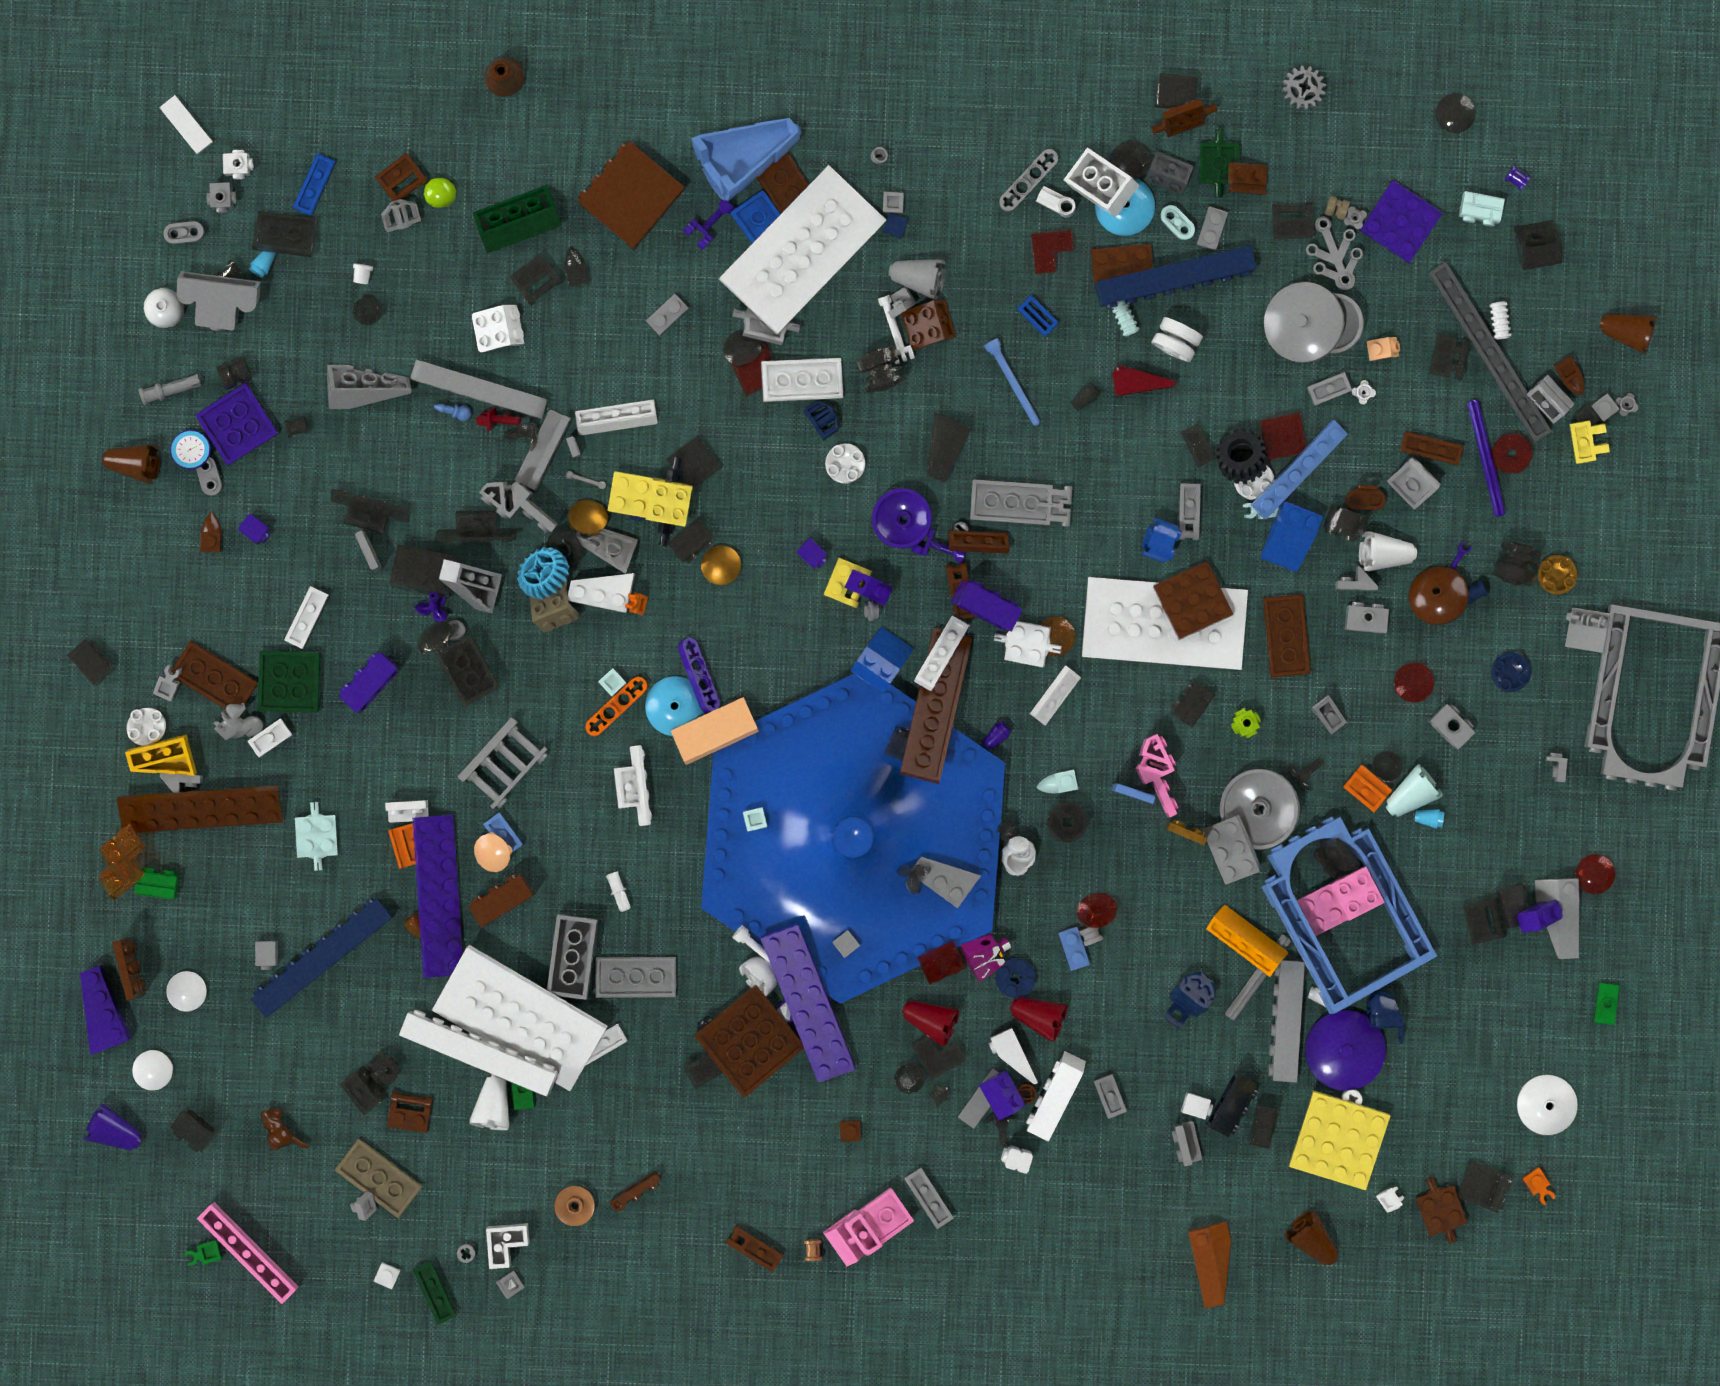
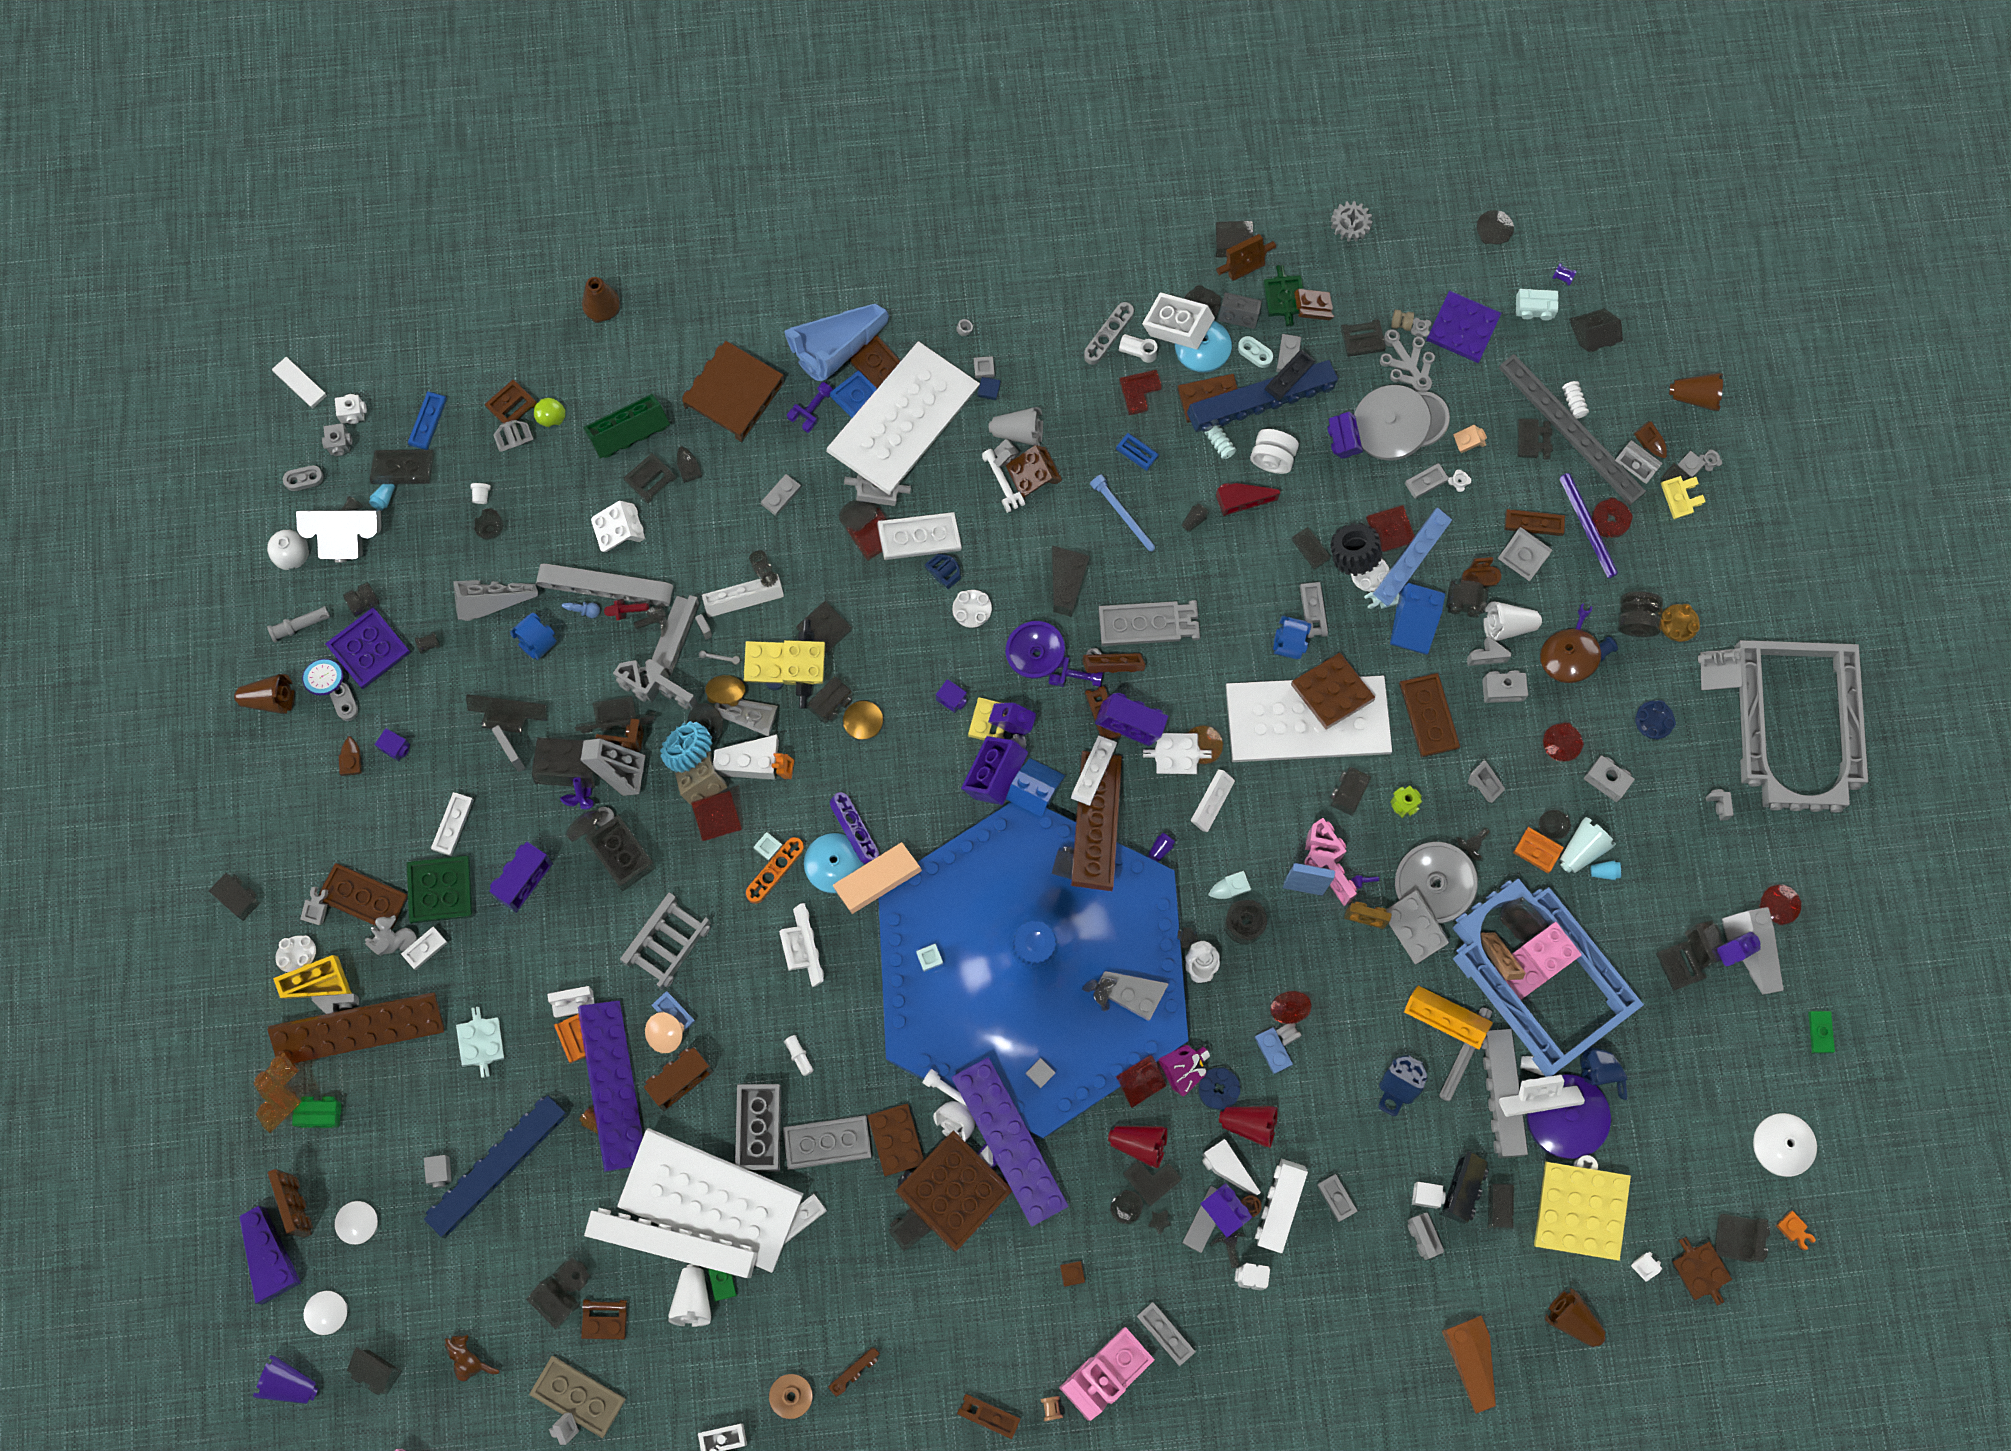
camera: 10 degrees left, 15 degrees down
(403, 437) = (533, 636): none -> blue brick
(493, 553) = (633, 732): none -> reddish brown bracket
(565, 645) = (716, 815): none -> clear red plate
(640, 390) = (759, 567): none -> clear smoke connector
(701, 983) = (896, 1140): none -> reddish brown plate
(843, 638) = (994, 770): none -> dark purple brick
(879, 367) = (993, 514): clear smoke wheel -> none
(1183, 795) = (1358, 880): none -> dark purple hand
(1206, 260) = (1289, 375): none -> black tile
(1253, 329) = (1345, 435): none -> dark purple brick
(1307, 891) = (1501, 957): none -> medium nougat plate
(1319, 1031) = (1541, 1095): none -> white bracket

